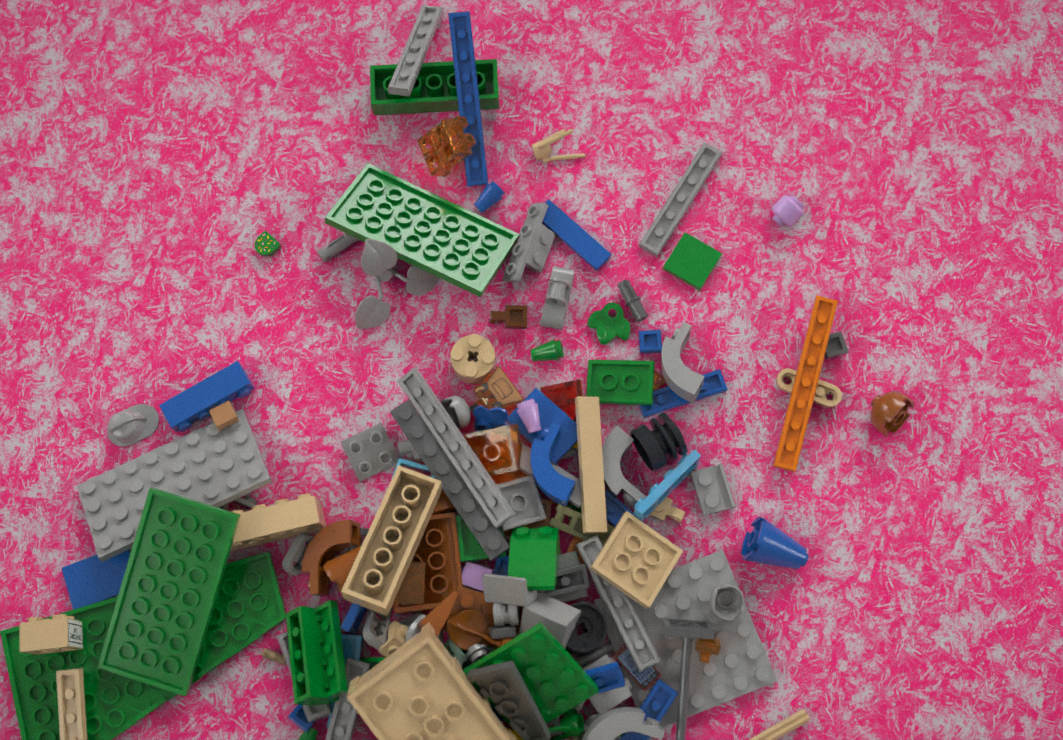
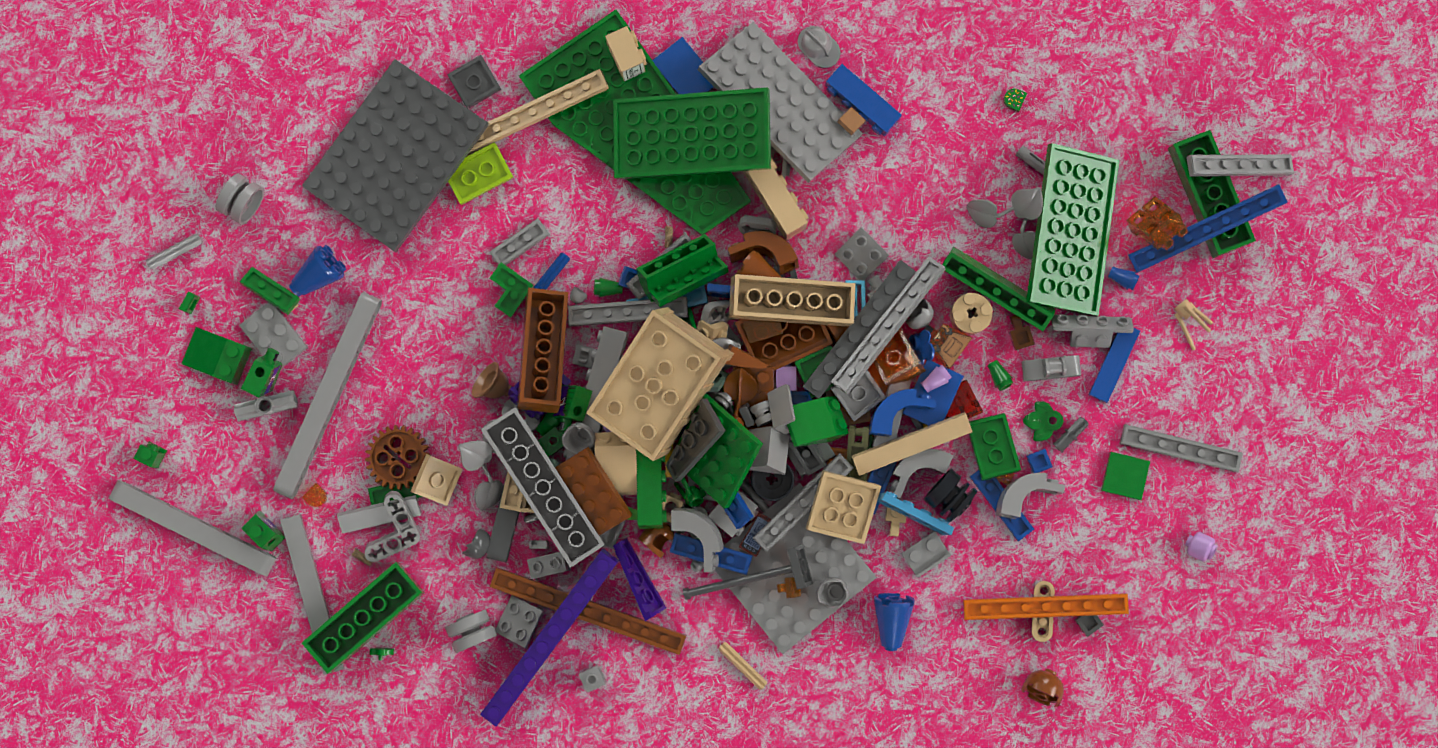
camera: 75 degrees right, 10 degrees up
(456, 323) = (996, 288): none -> green brick

